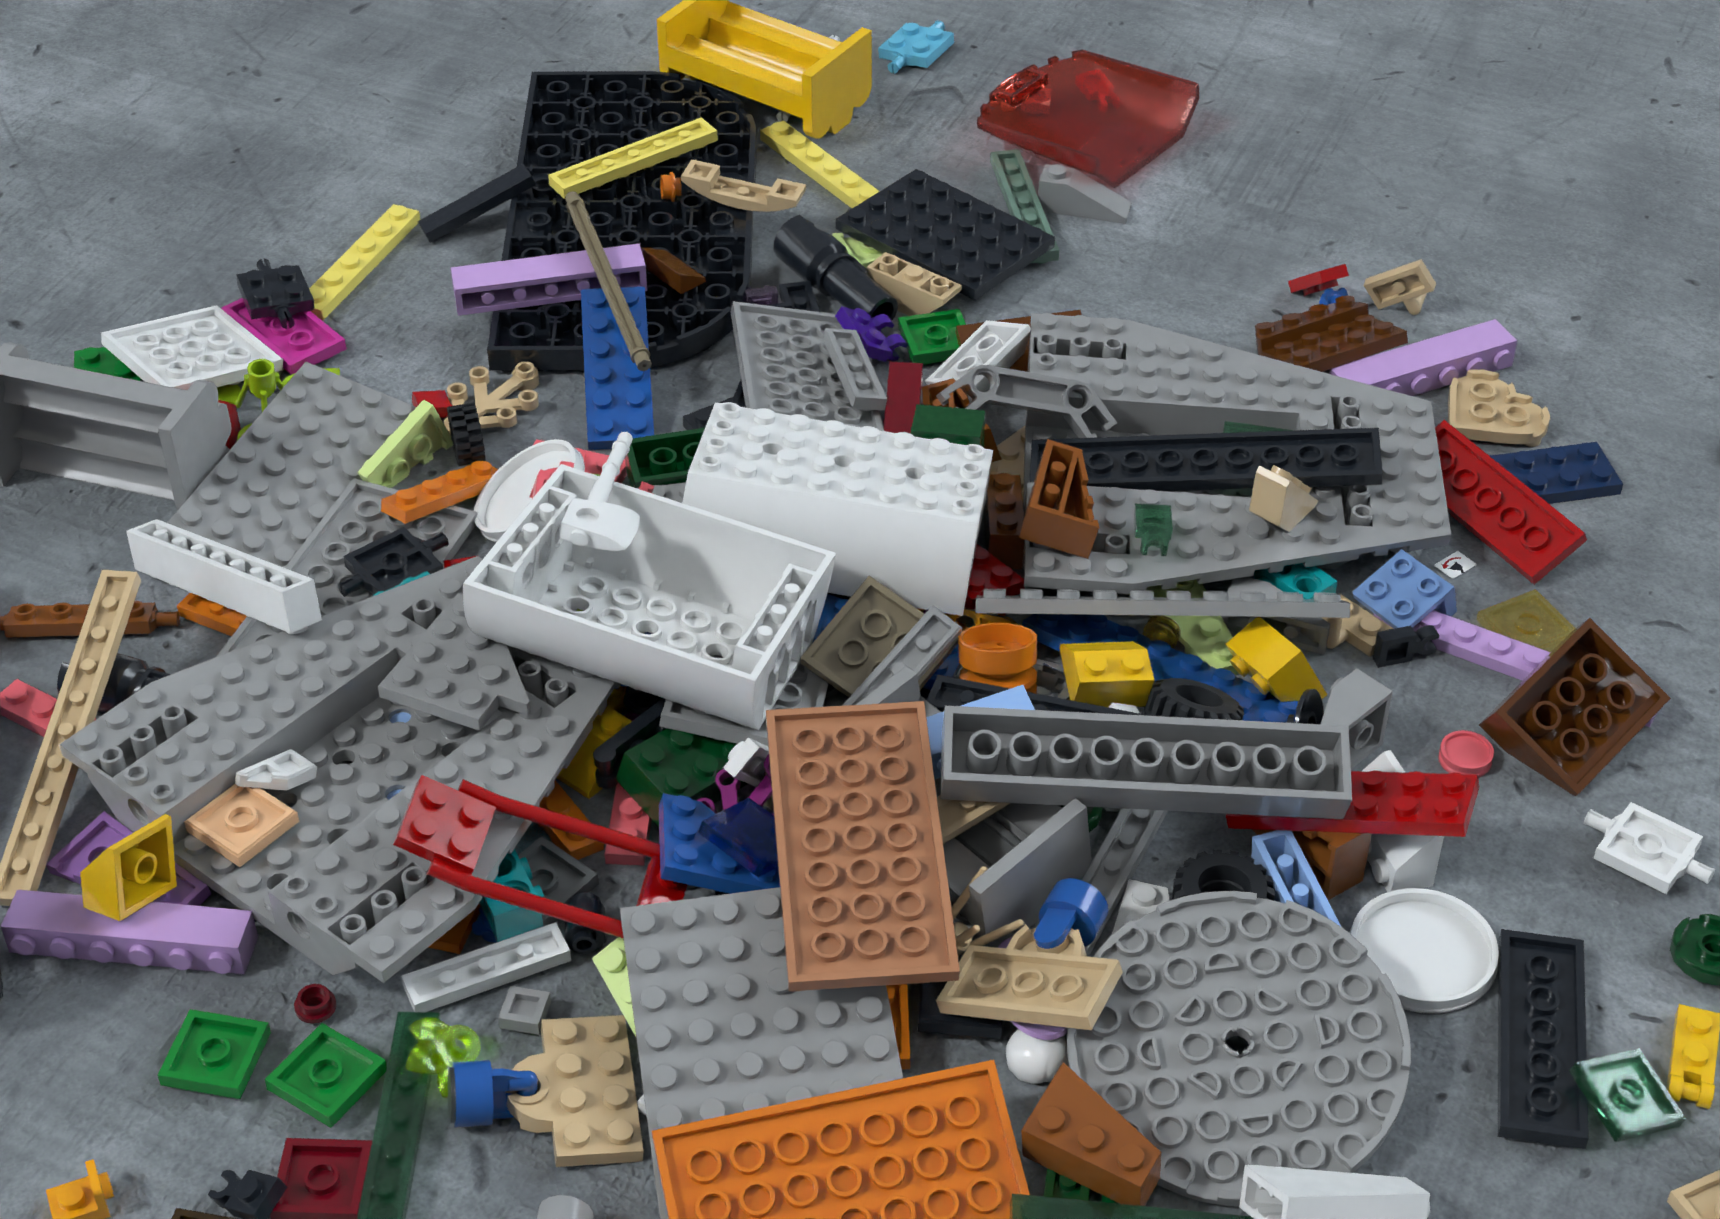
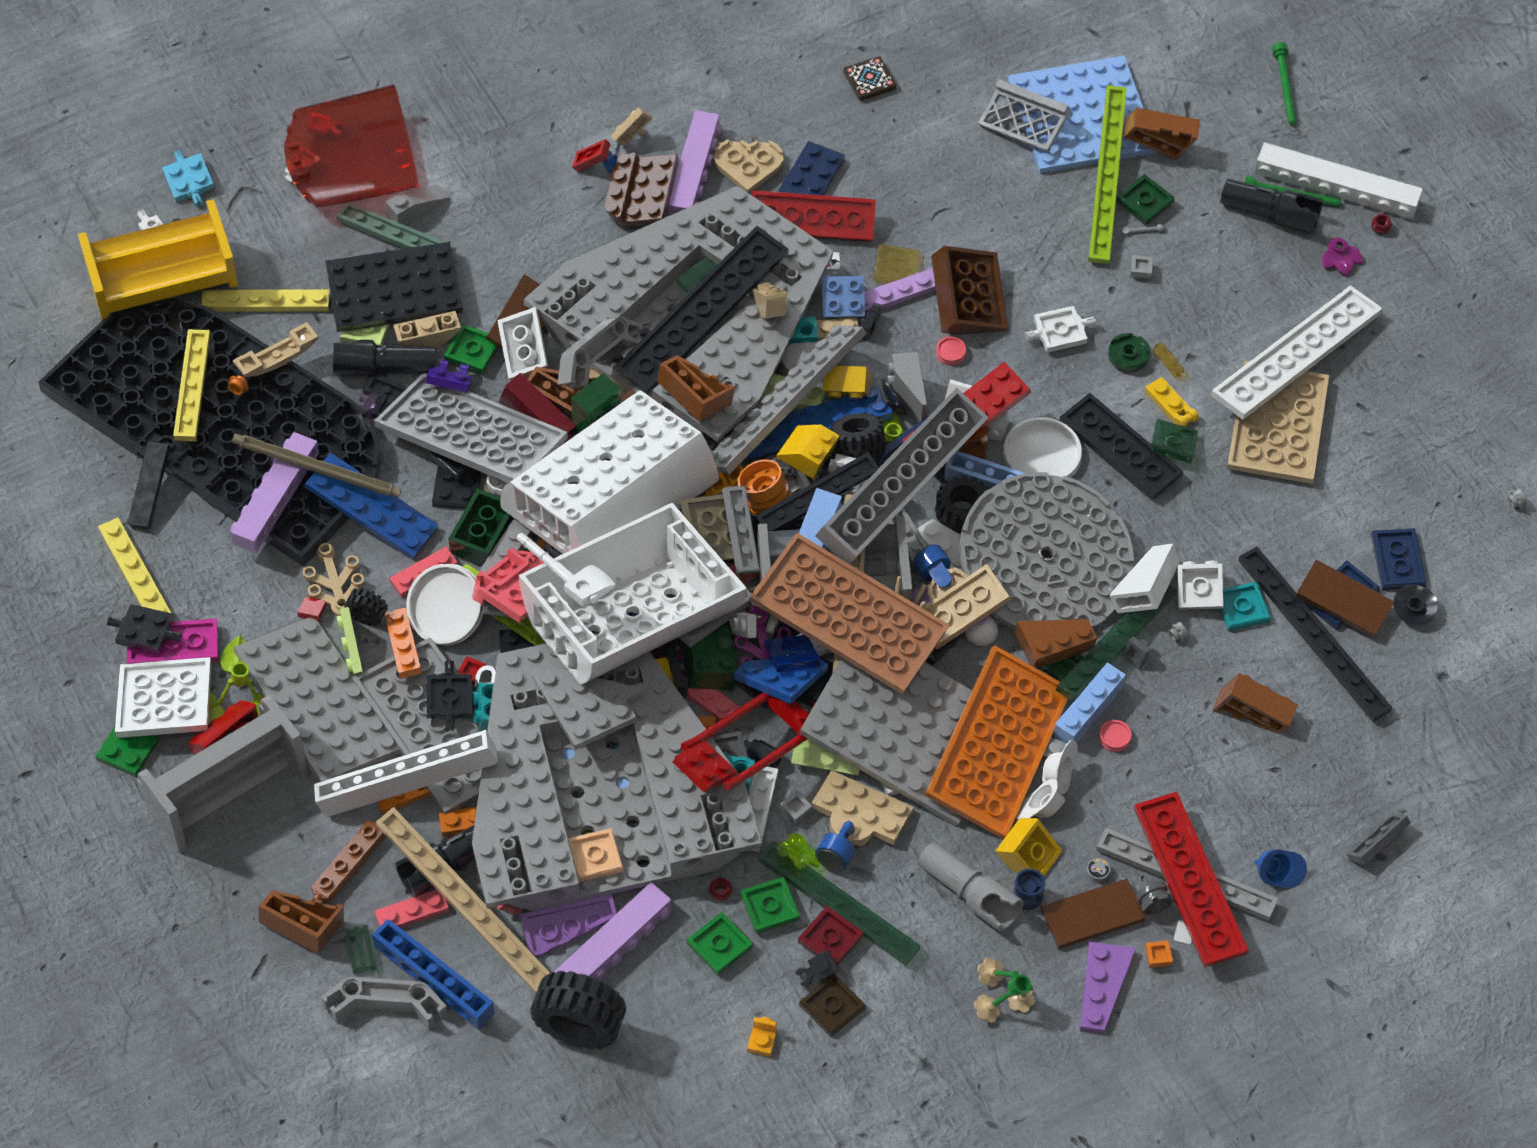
camera: 55 degrees left, 15 degrees up
(131, 871) = (592, 916): yellow slope -> none
(278, 772) = (576, 821): white tile -> none
(671, 270) = (318, 429): reddish brown slope -> none
(854, 369) = (487, 403): light grey plate -> none
(1154, 526) = (738, 362): clear green plate -> none

